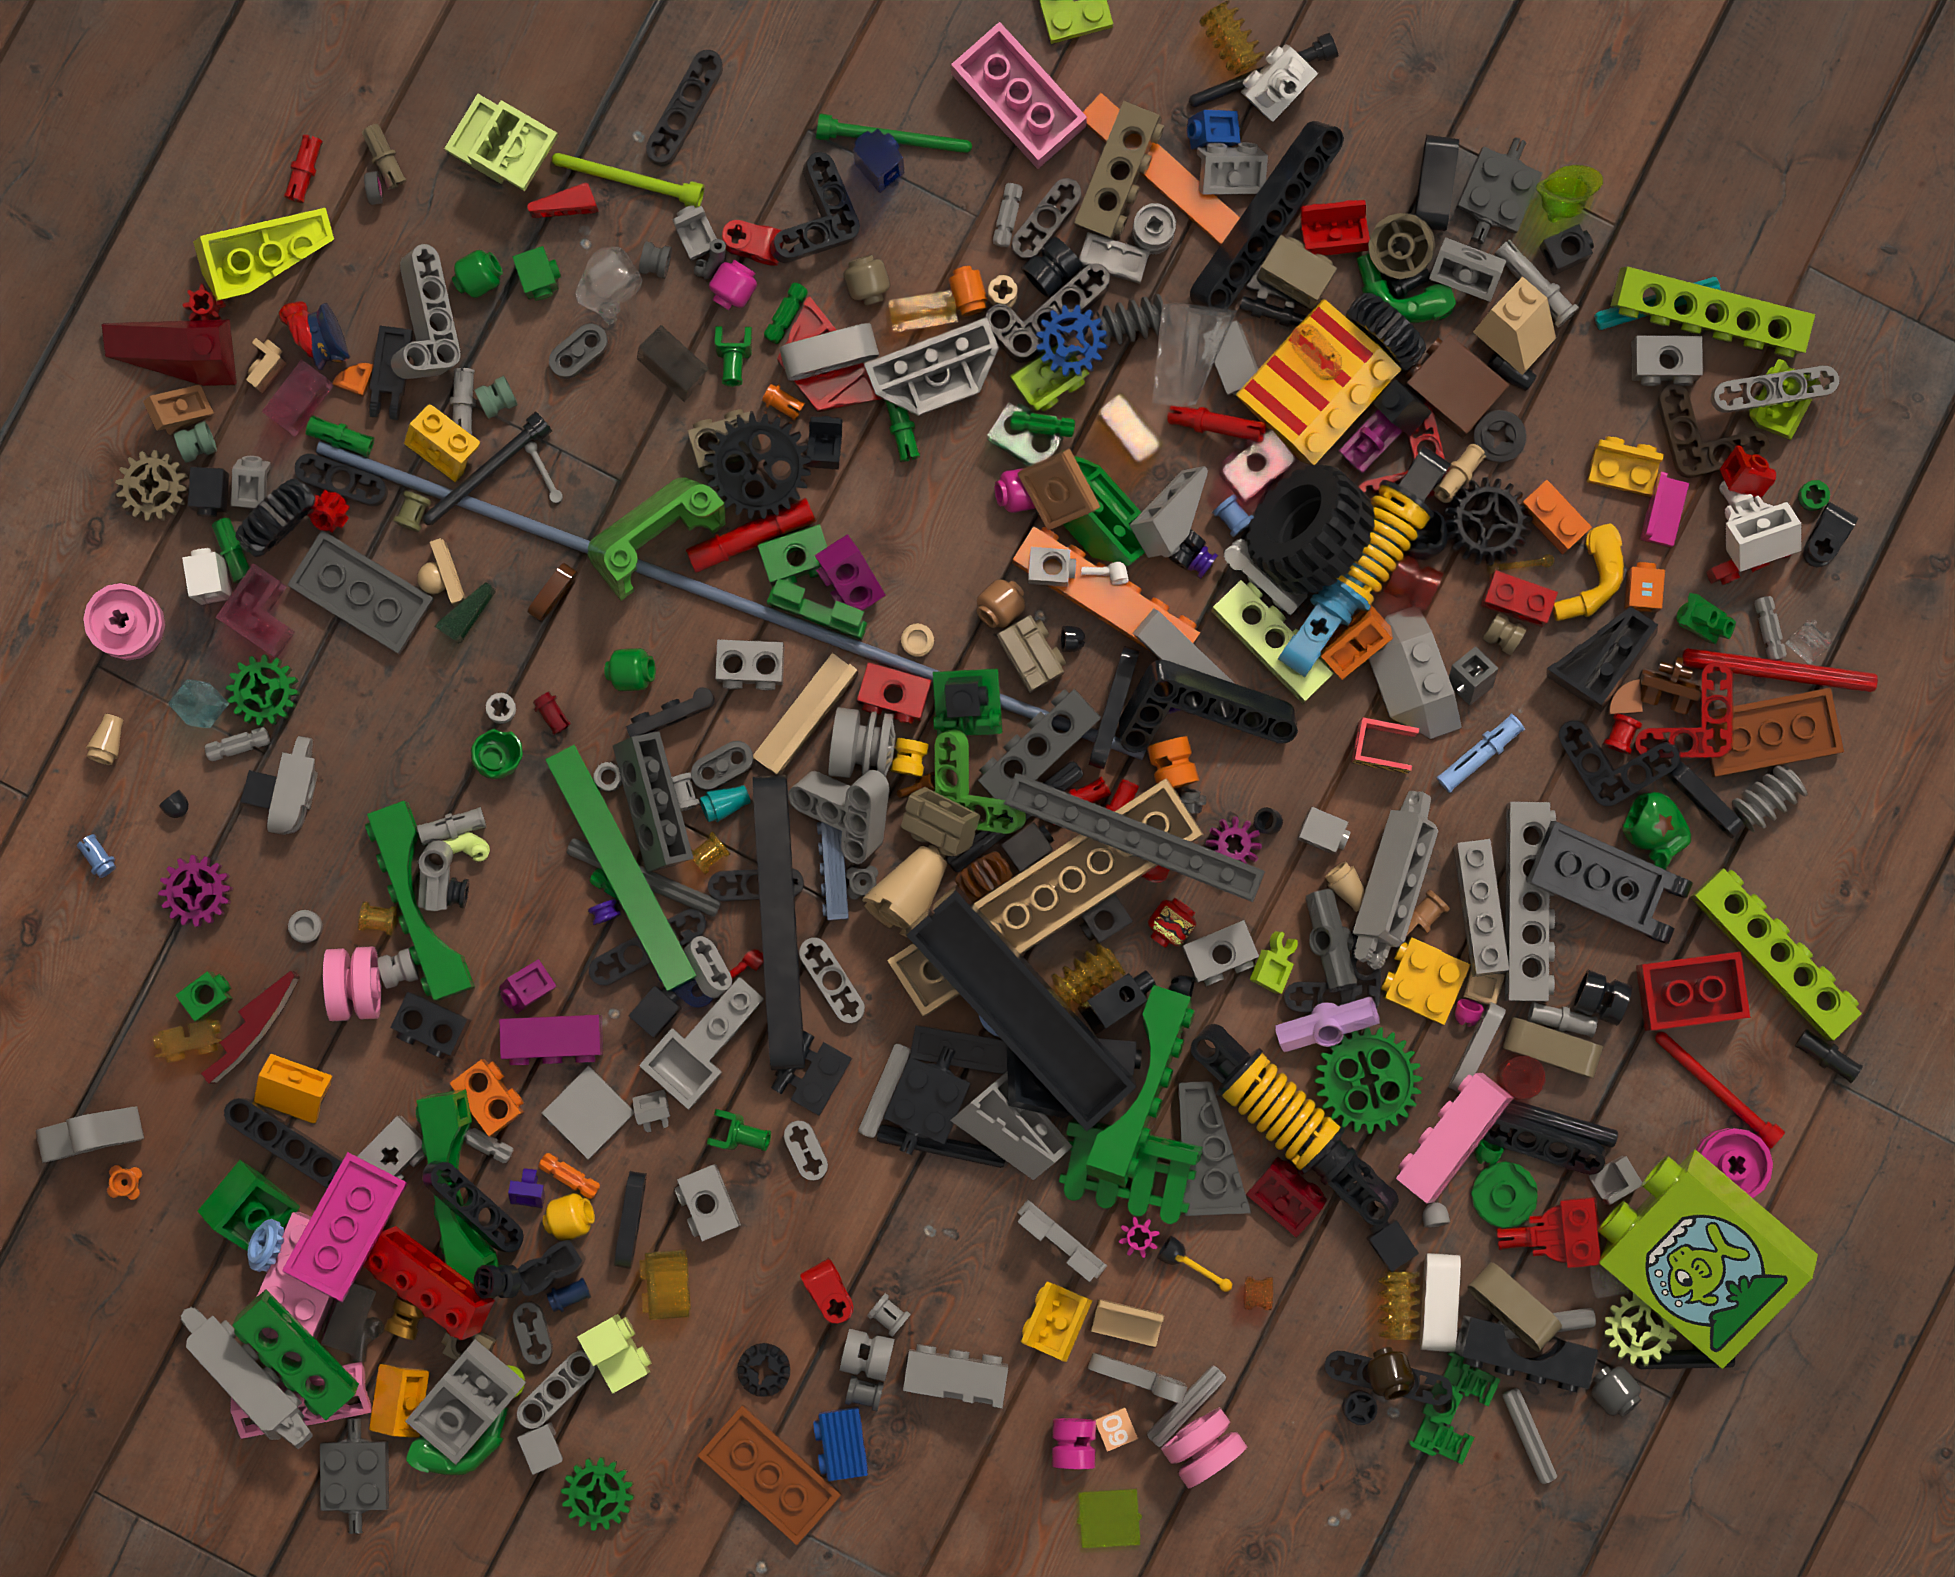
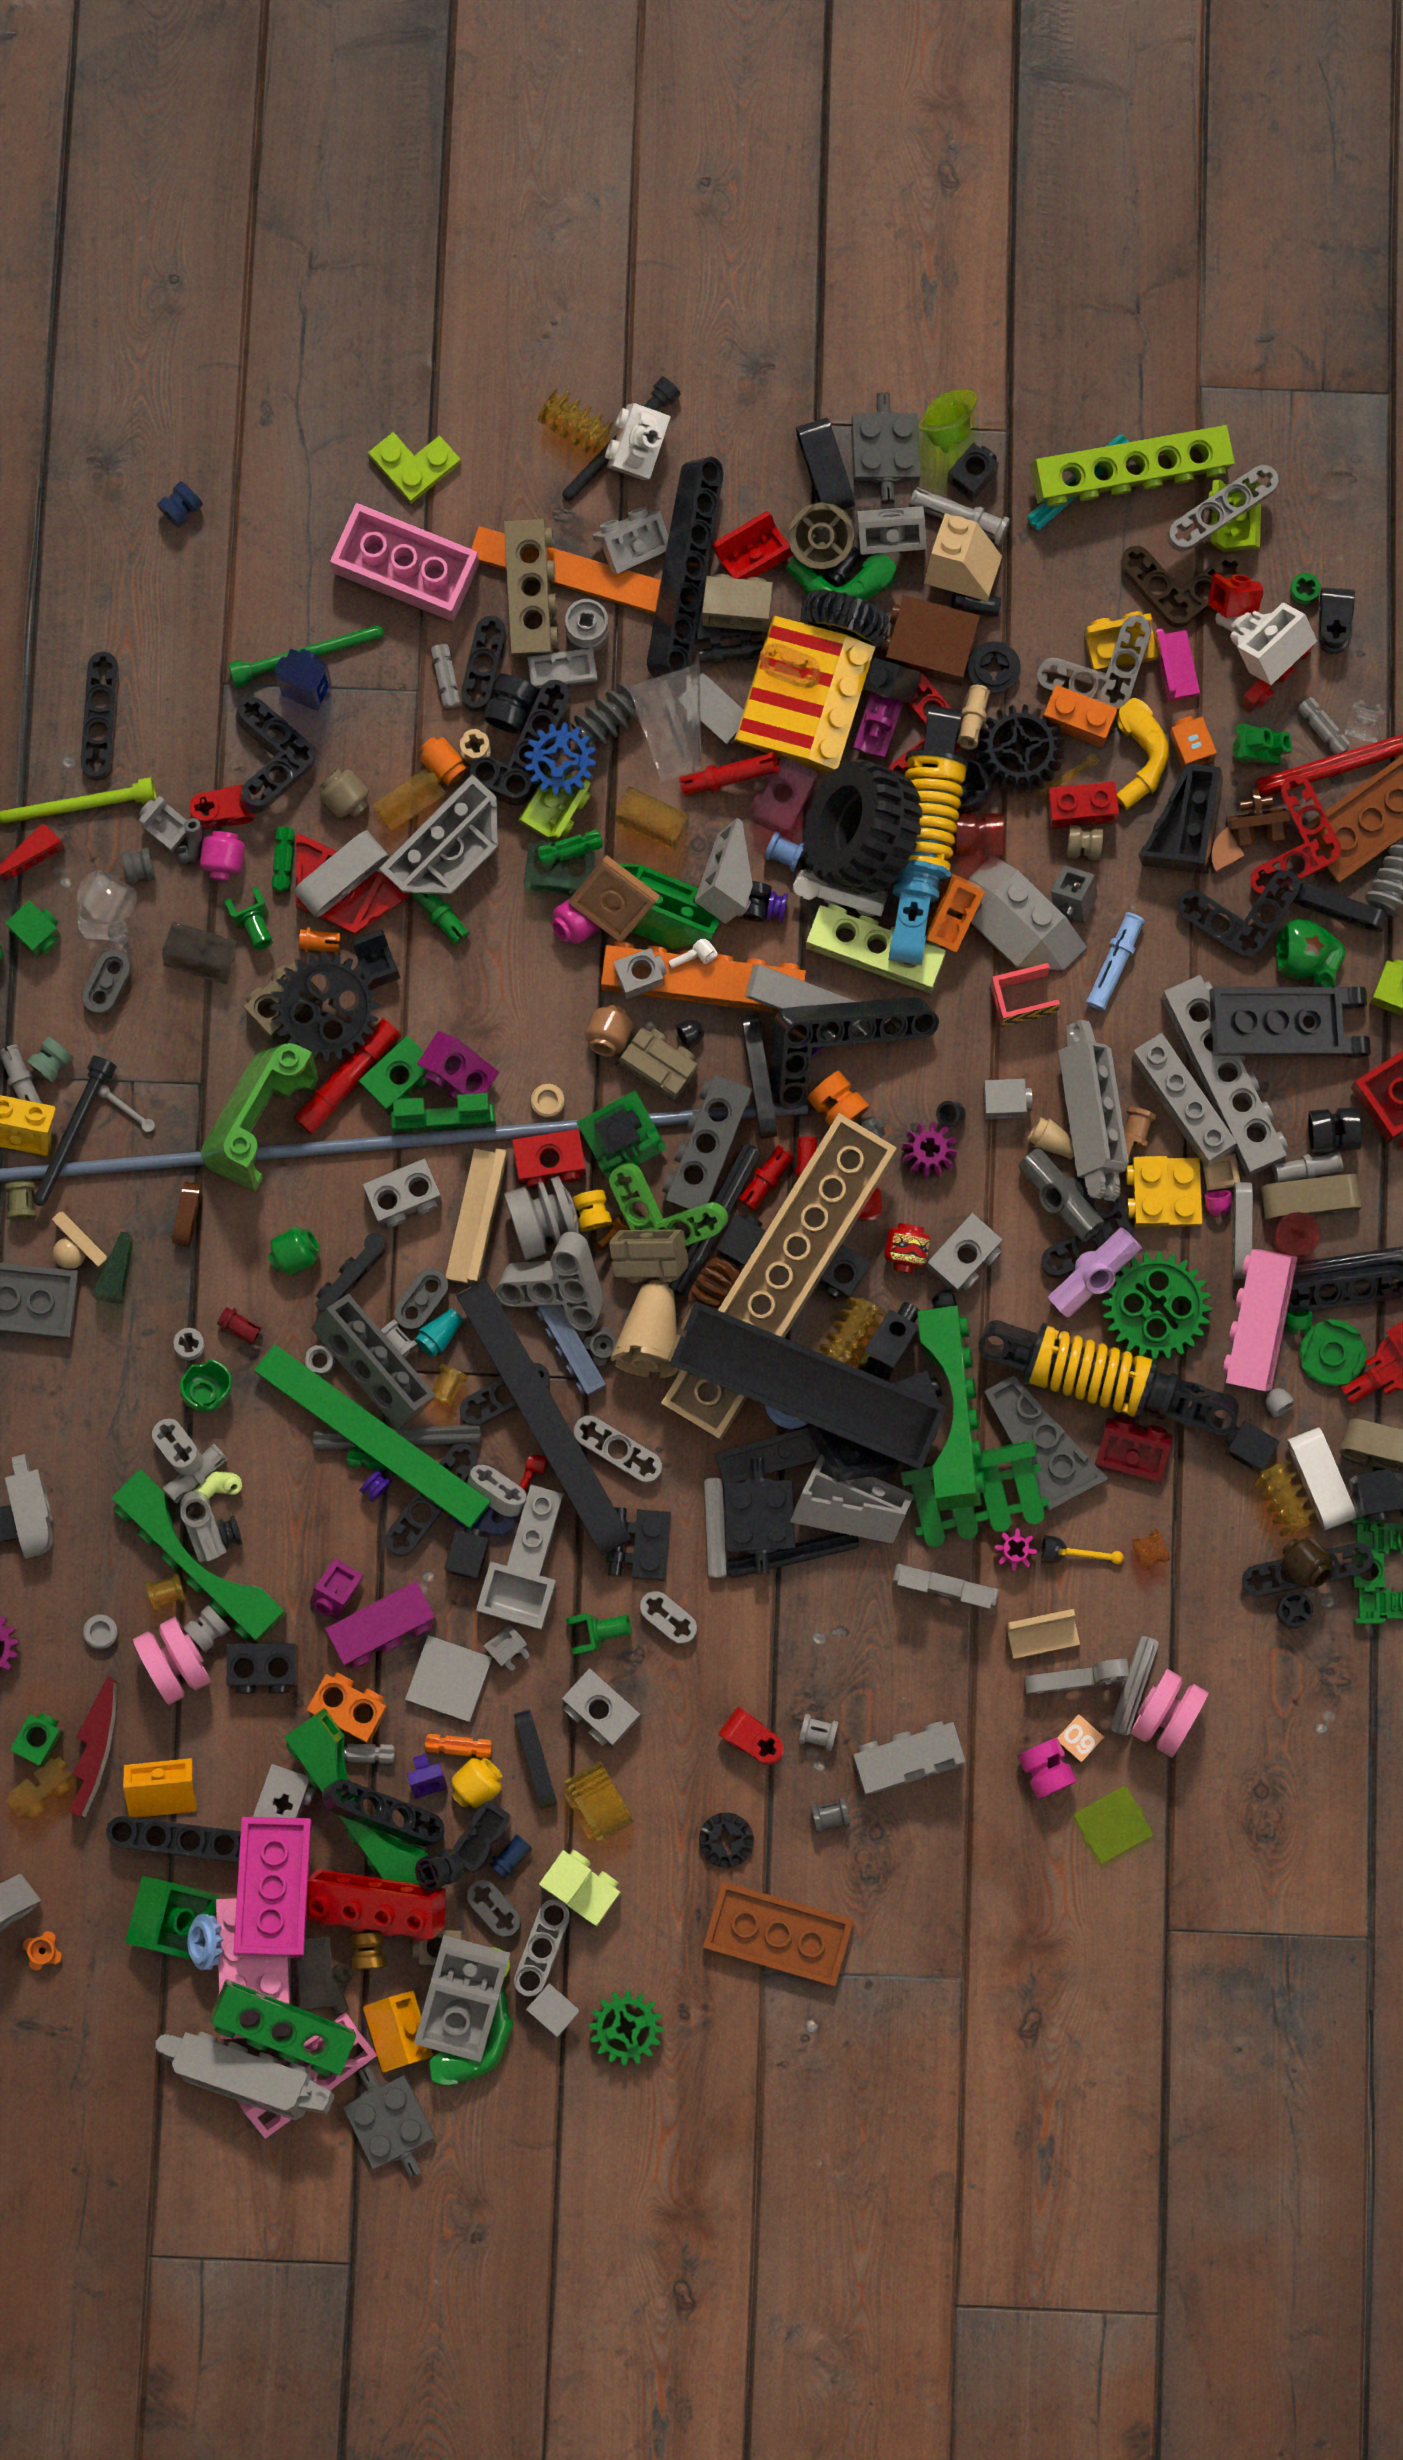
camera: 25 degrees left, 5 degrees down
(440, 796) = (172, 1450): none -> light grey beam
(842, 1444) = (832, 1871): blue brick -> none
(878, 1358) = (827, 1773): light grey wheel -> none
(1055, 1321) = (976, 1664): yellow bracket -> none
(1134, 837) = (836, 1179): dark grey tile -> none
(1213, 127) = (596, 510): blue bracket -> none
(1272, 966) = (1018, 1244): lime plate -> none
(1590, 493) = (1101, 680): none -> light grey beam
(1622, 734) = (1236, 883): red bush -> none
(1683, 349) = (1122, 512): light grey brick -> none

